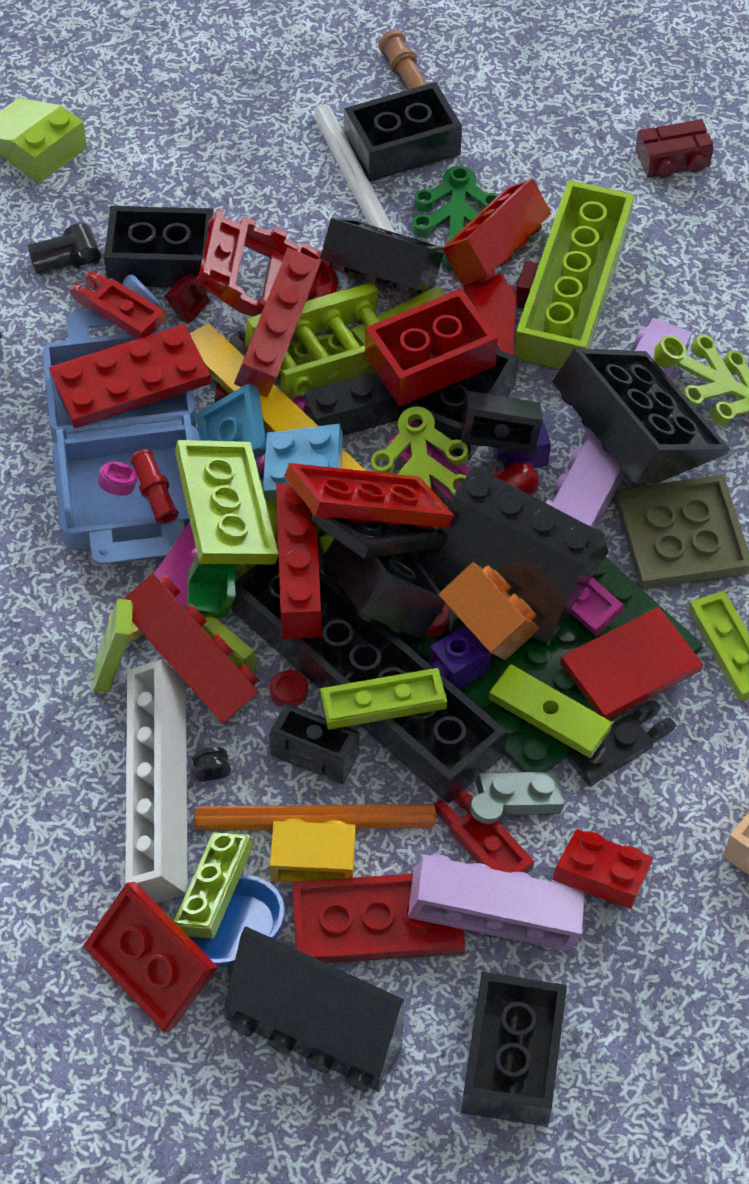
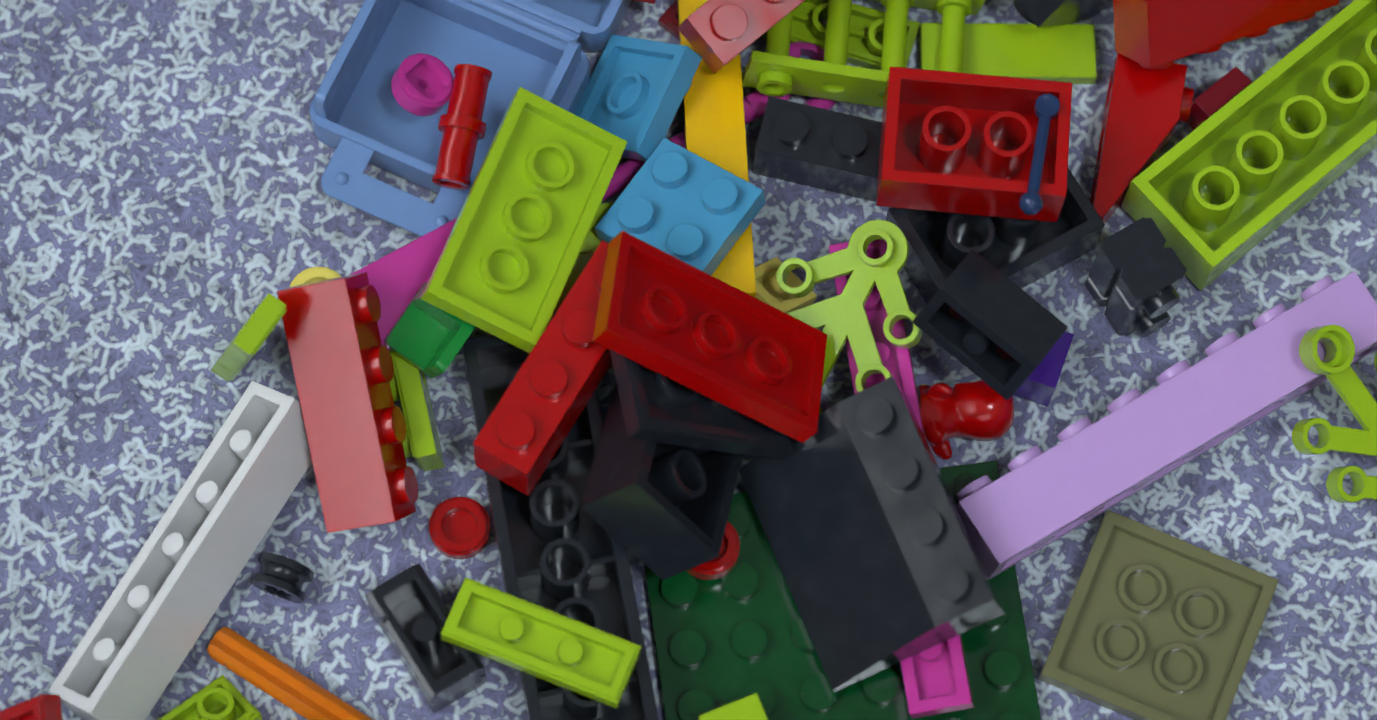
camera: 30 degrees right, 15 degrees up
(458, 304) = (1046, 110): none -> dark blue hinge
(460, 657) = (693, 639): dark purple brick -> none
(488, 610) = (768, 606): orange brick -> none
(541, 368) = (1136, 279): none -> black brick
(637, 413) = (1203, 426): black slope -> none

